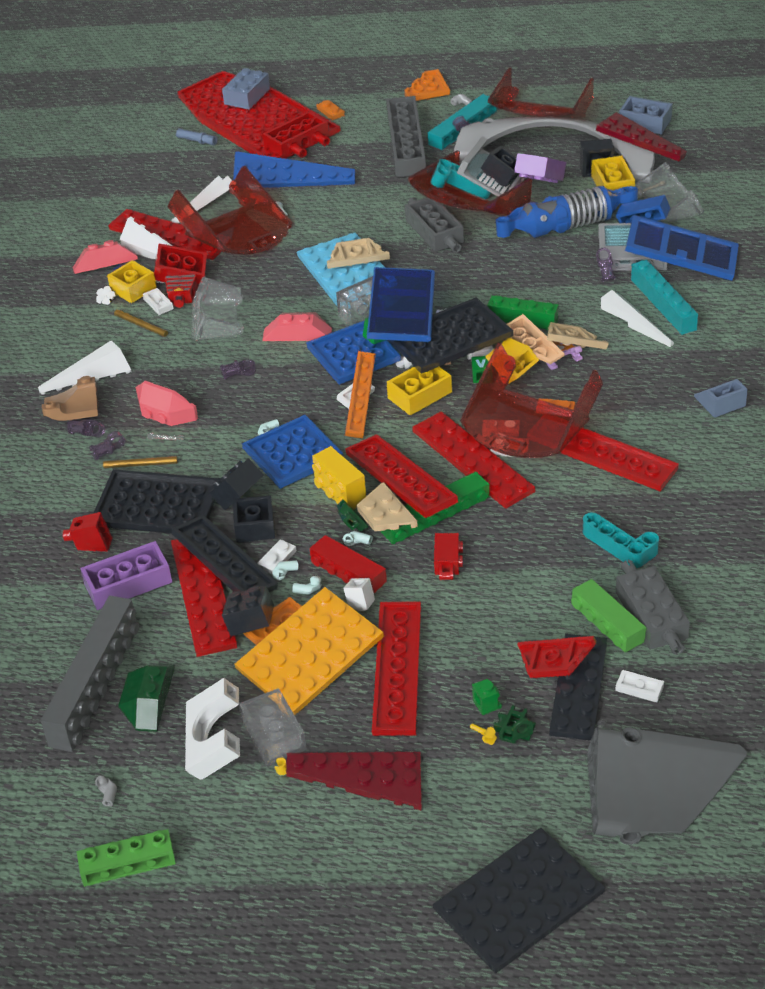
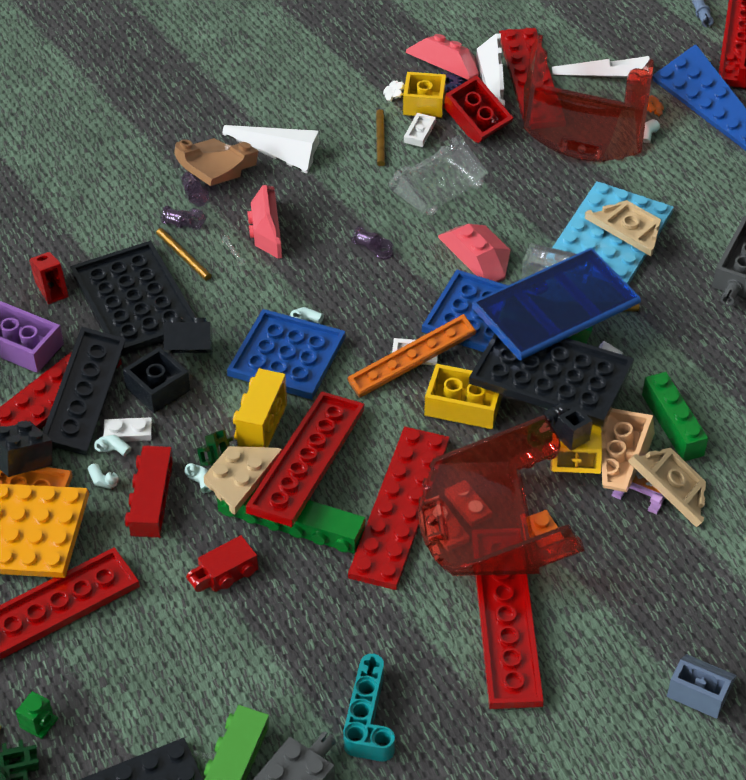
camera: 50 degrees right, 5 degrees up
(181, 289) = (448, 127): red torso -> none
(359, 593) = (109, 523): white brick -> none
(508, 339) = (570, 425): none -> black brick
(555, 656) = (130, 744): red wing -> none

